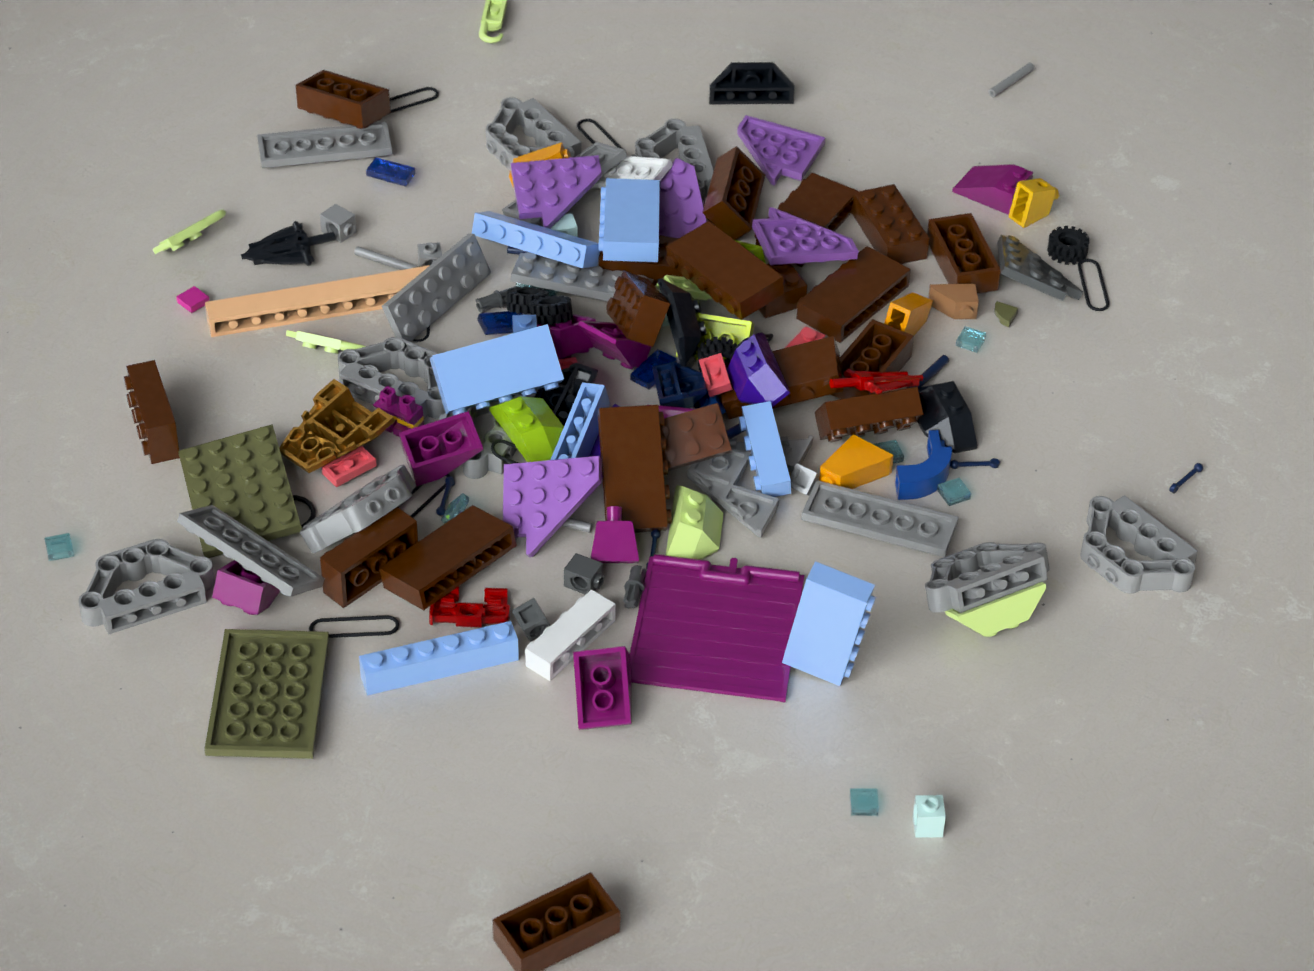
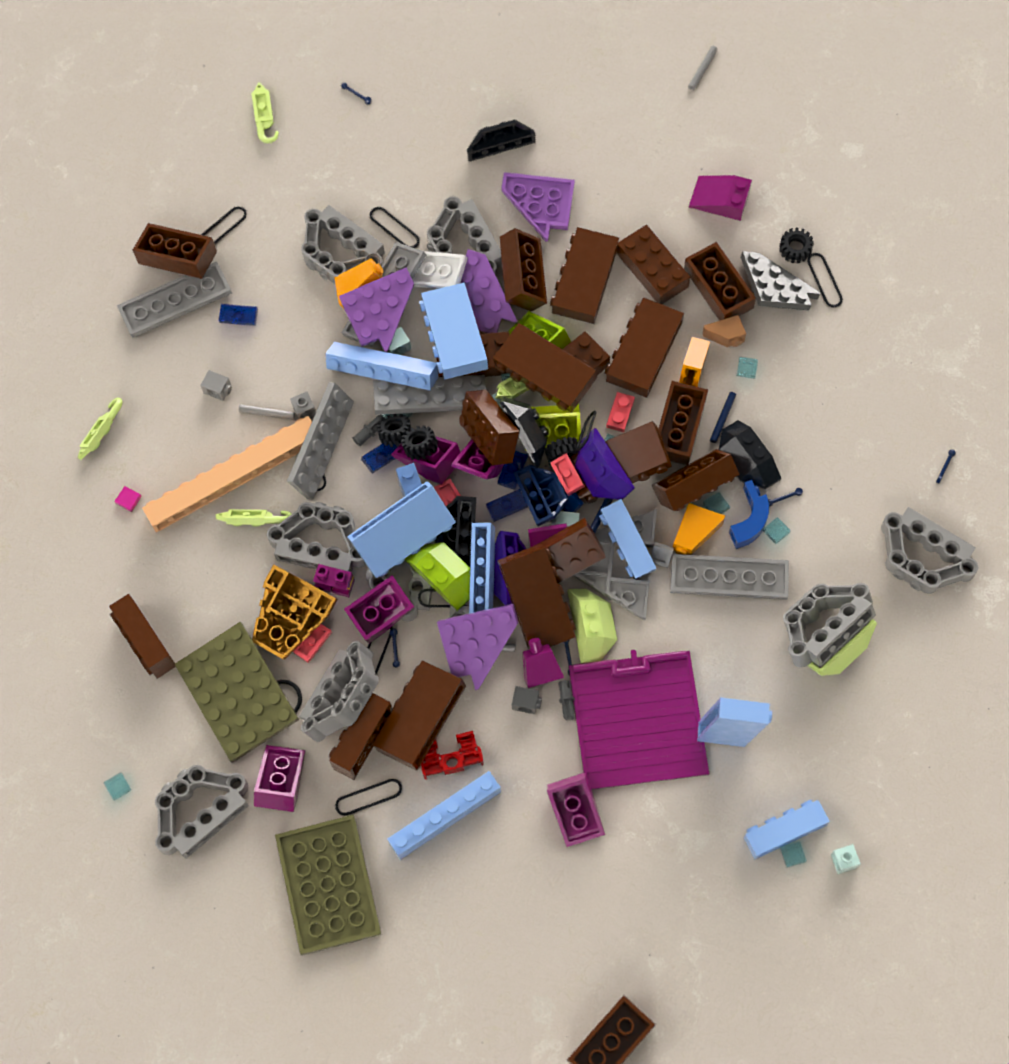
camera: 10 degrees left, 25 degrees up
(250, 550) = (270, 761): light grey plate -> none
(286, 246) = (165, 429): black bar -> none
(455, 507) = (408, 662): clear light blue tile -> none
(531, 619) = (502, 760): dark grey brick -> none
(570, 634) = (534, 762): white brick -> none
(614, 32) = (367, 99): none -> dark blue hinge
(633, 396) = (506, 505): none -> clear blue plate
(795, 240) = (591, 312): medium lavender wing -> none
(864, 769) = (786, 829): none -> light blue brick
(876, 381) = (693, 457): red bar -> none
(1005, 313) = (765, 331): olive tile -> none
(1032, 201) = (761, 201): yellow torso -> none

